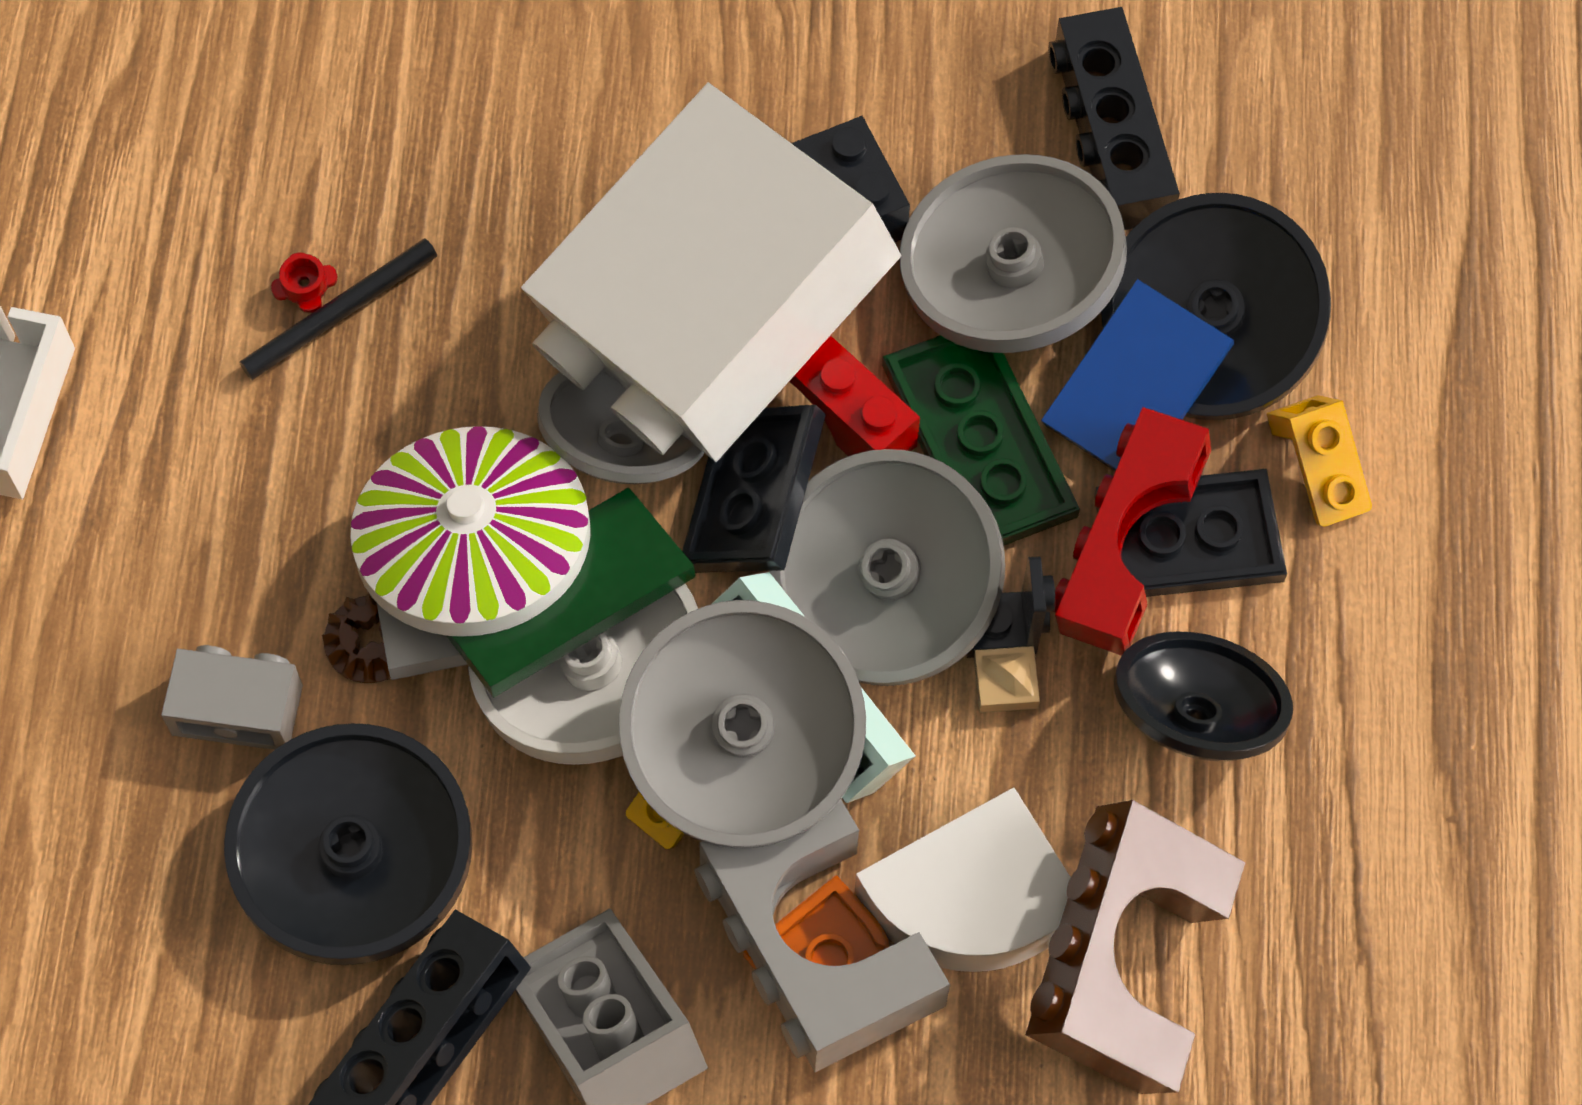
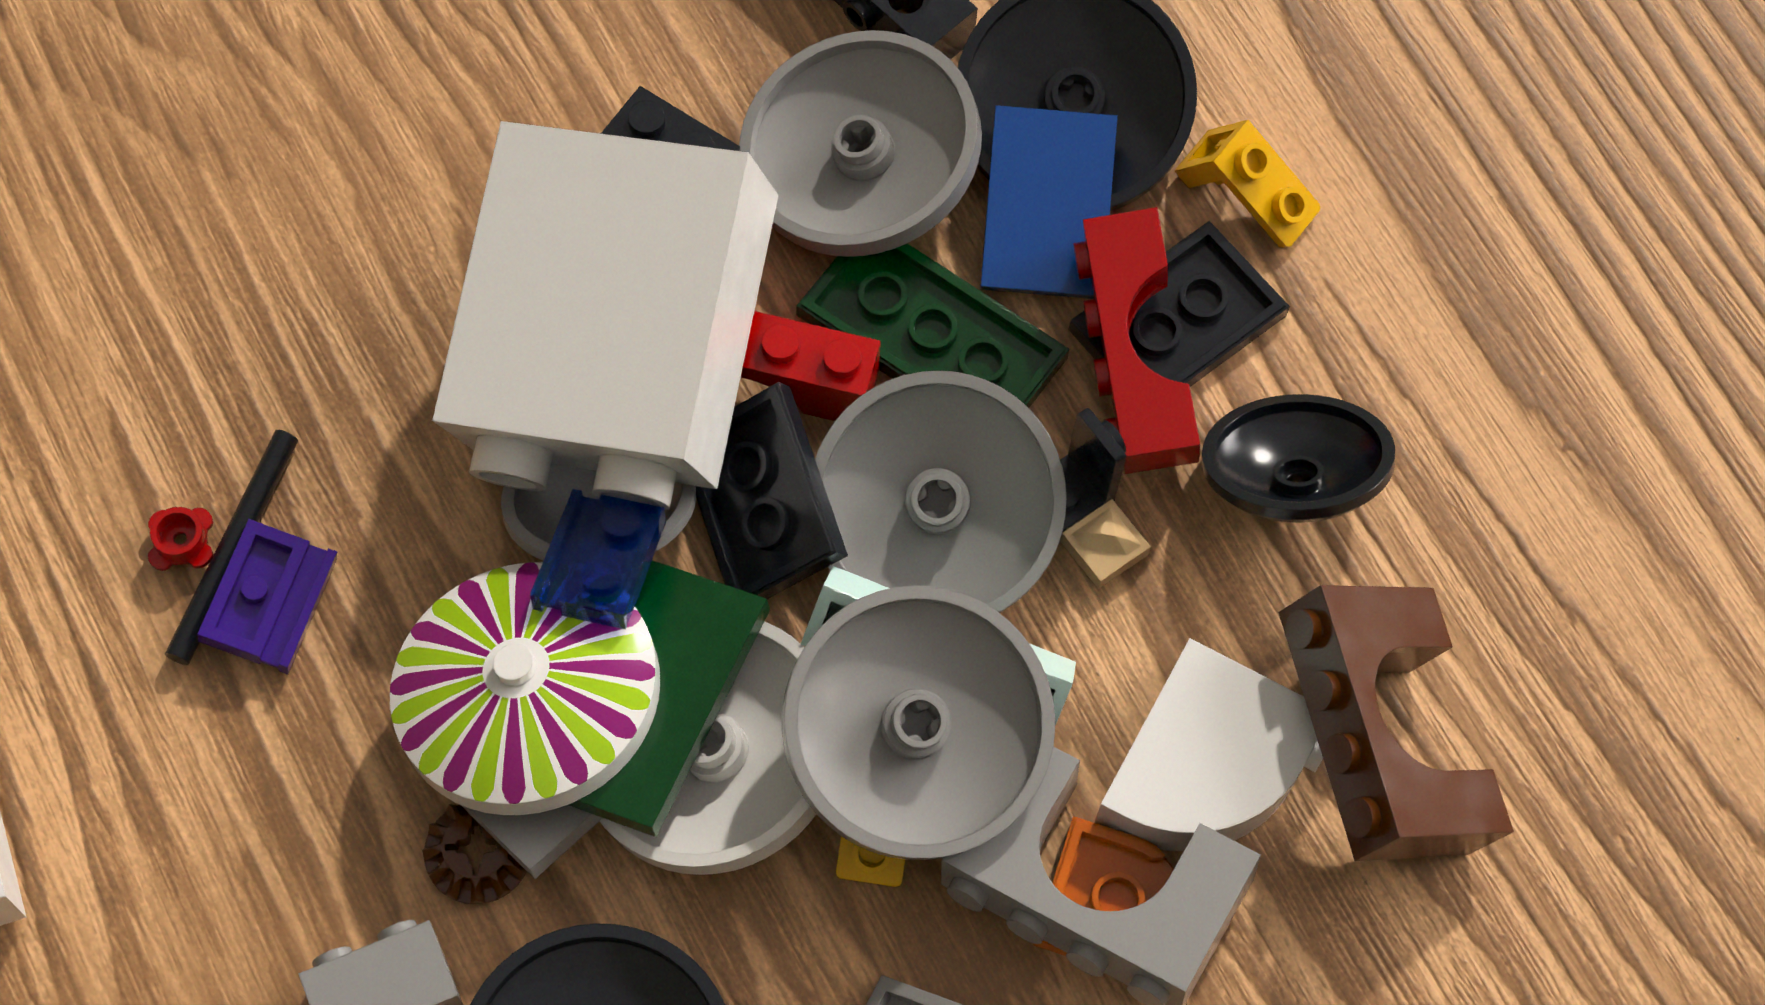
camera: 35 degrees left, 0 degrees up
(338, 360) = (267, 596): none -> dark purple plate
(582, 462) = (598, 559): none -> clear blue plate

